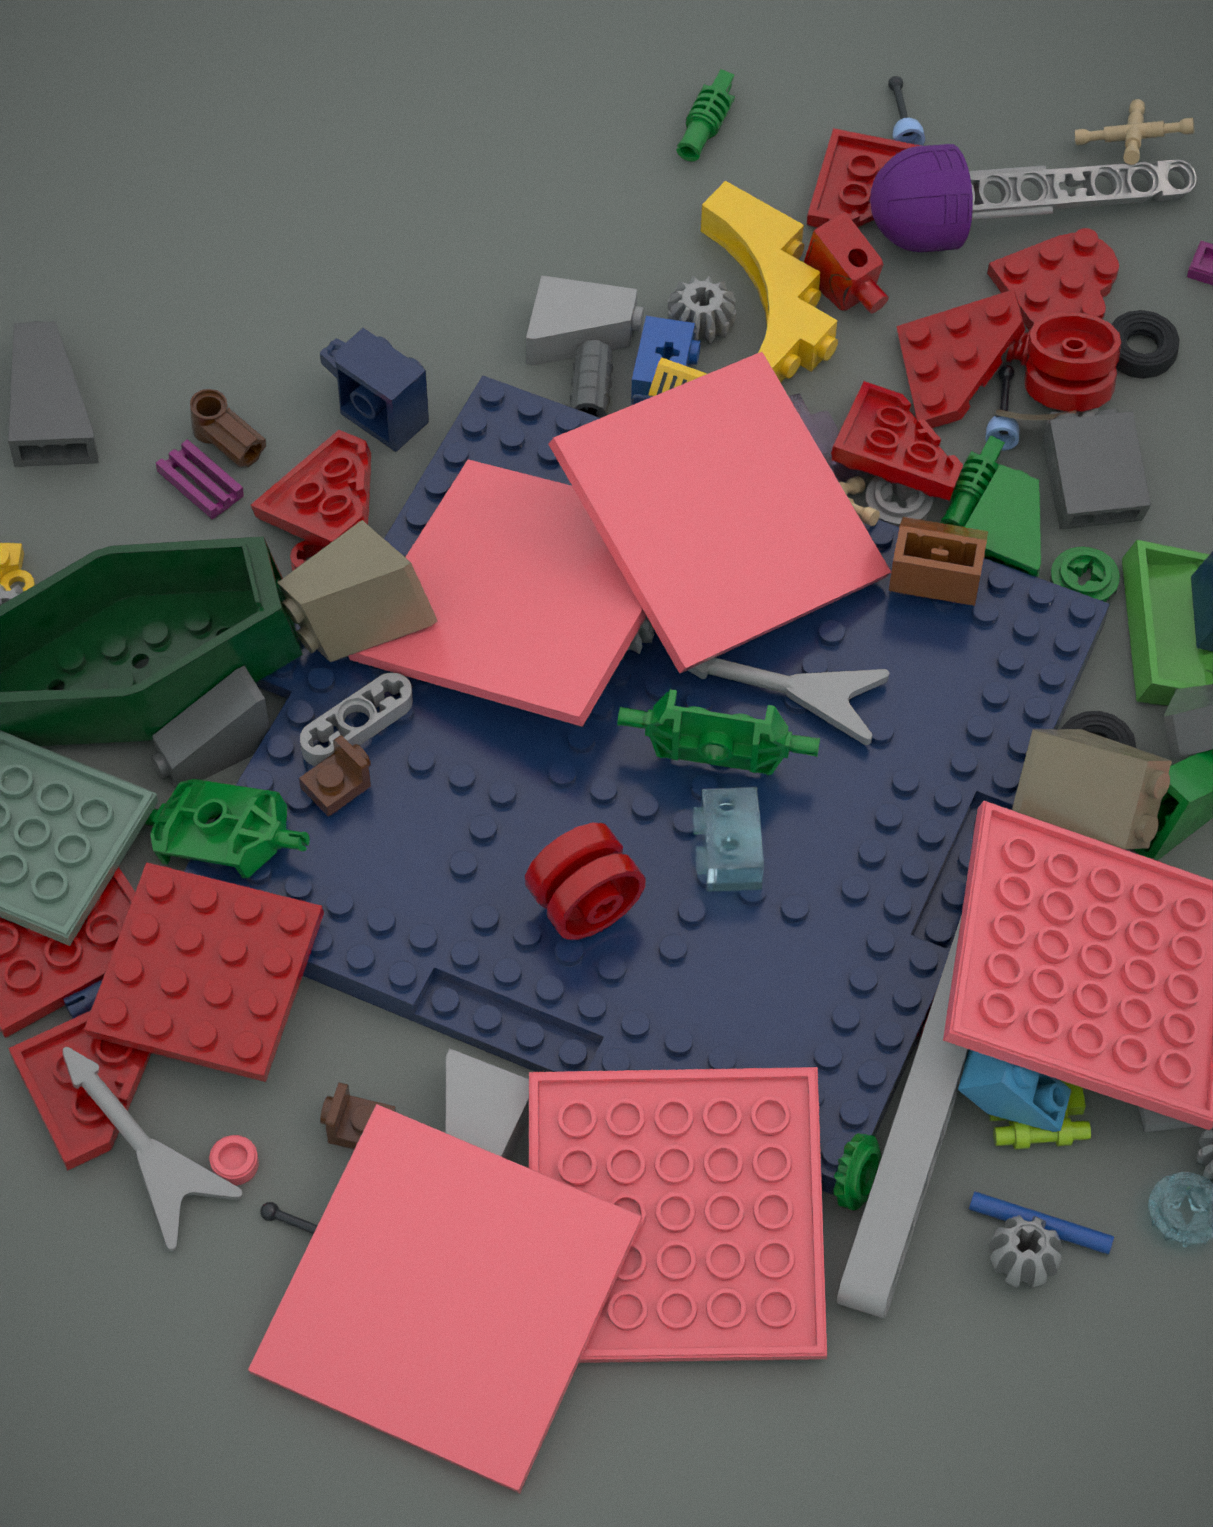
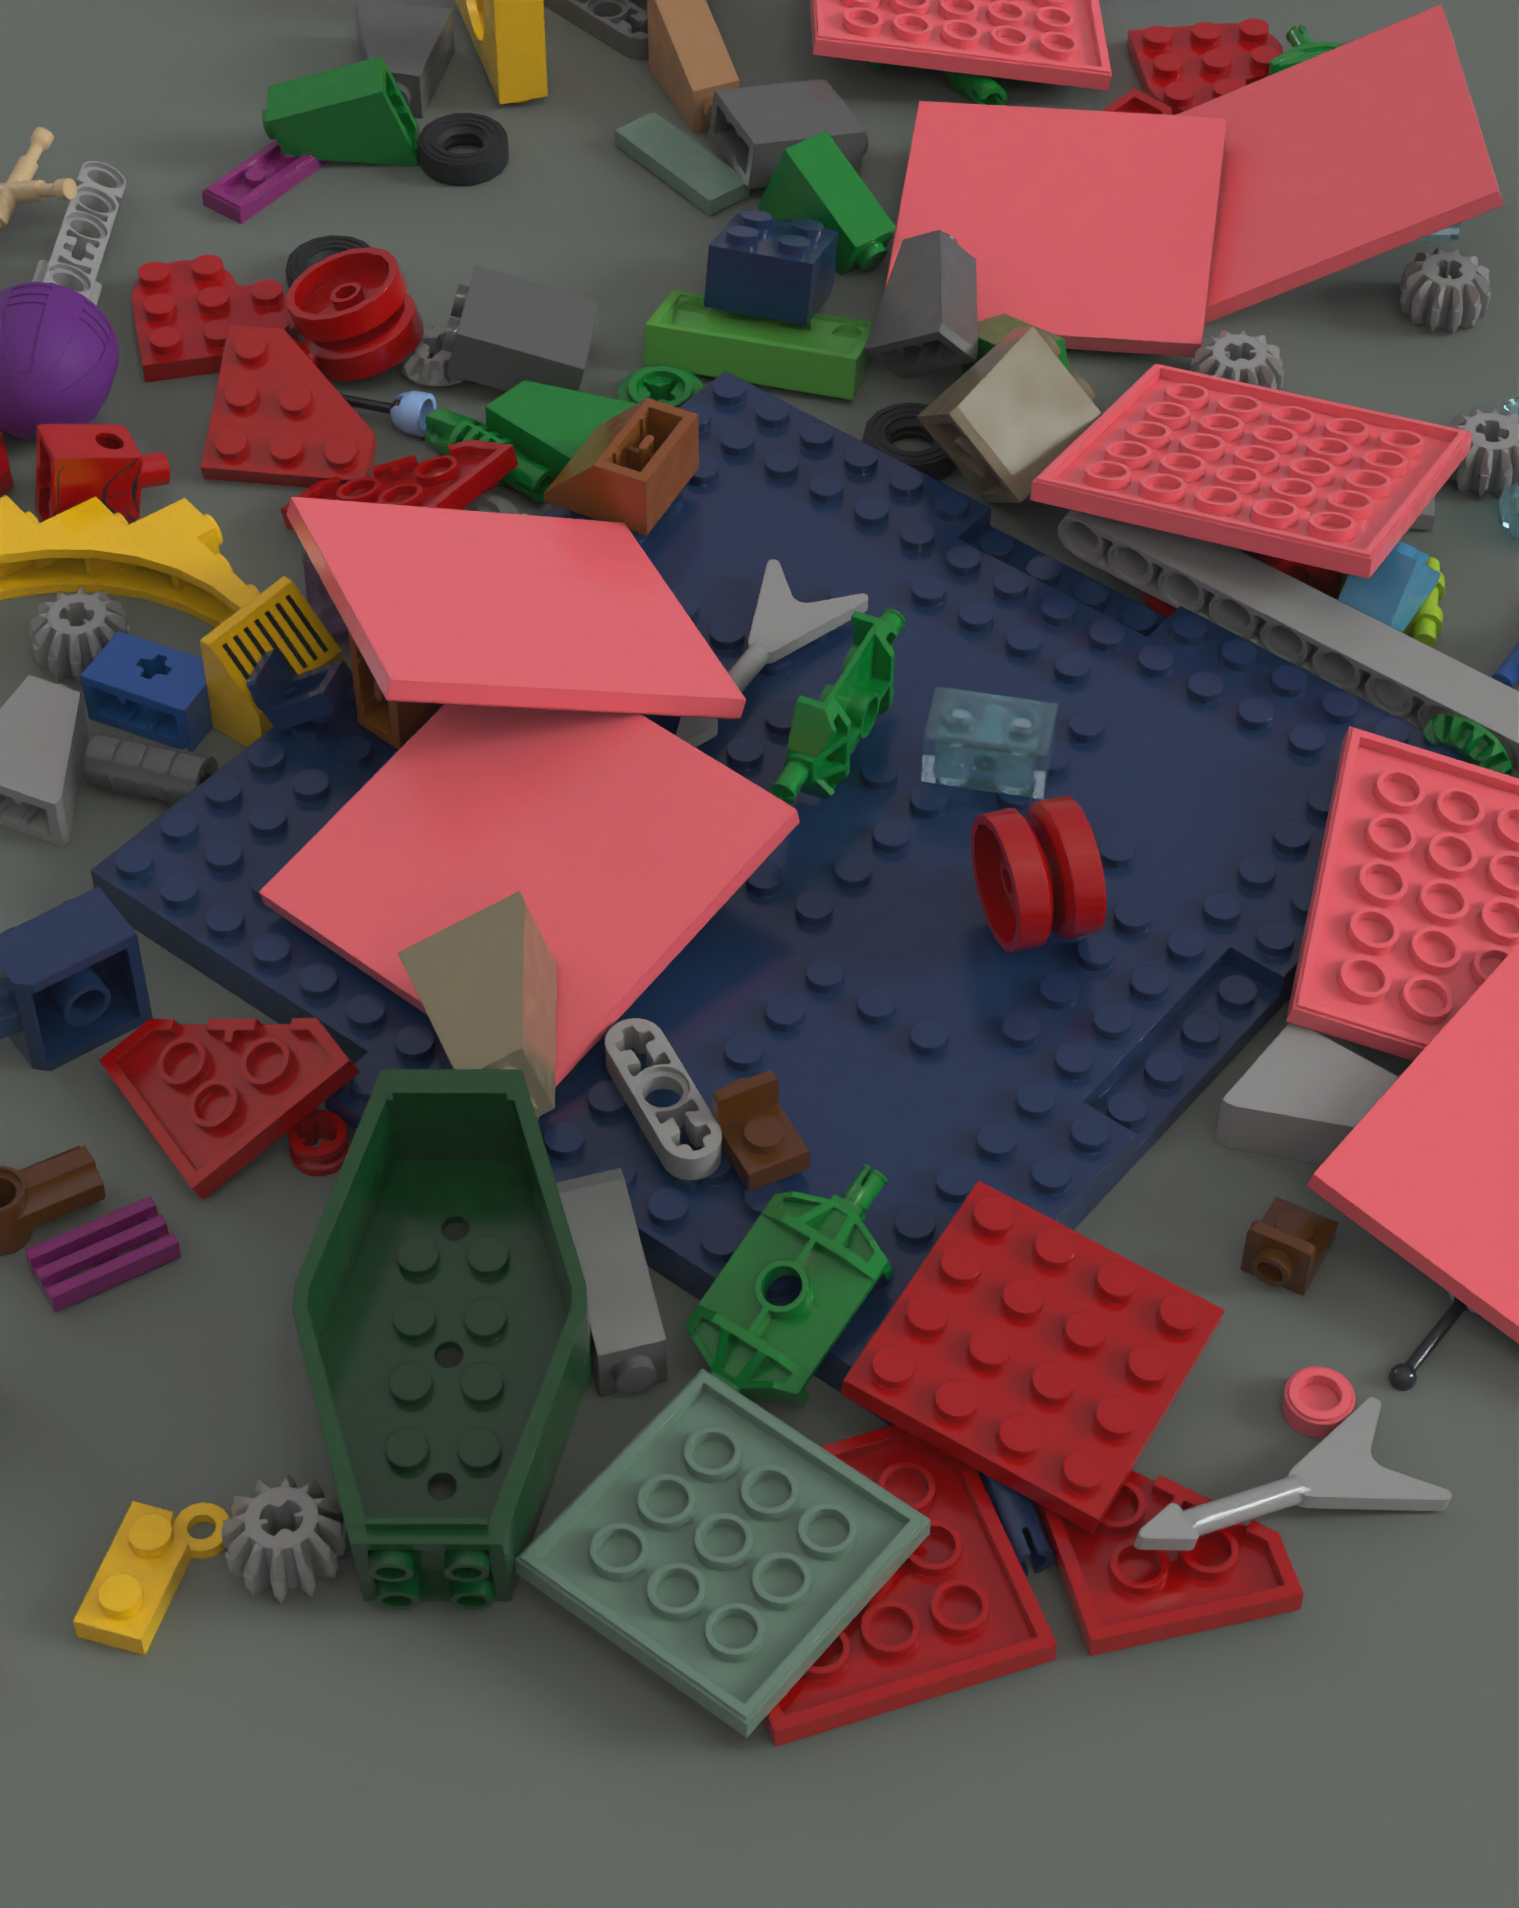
camera: 75 degrees left, 10 degrees down
(1029, 416) = (423, 358): dark tan sticker -> none

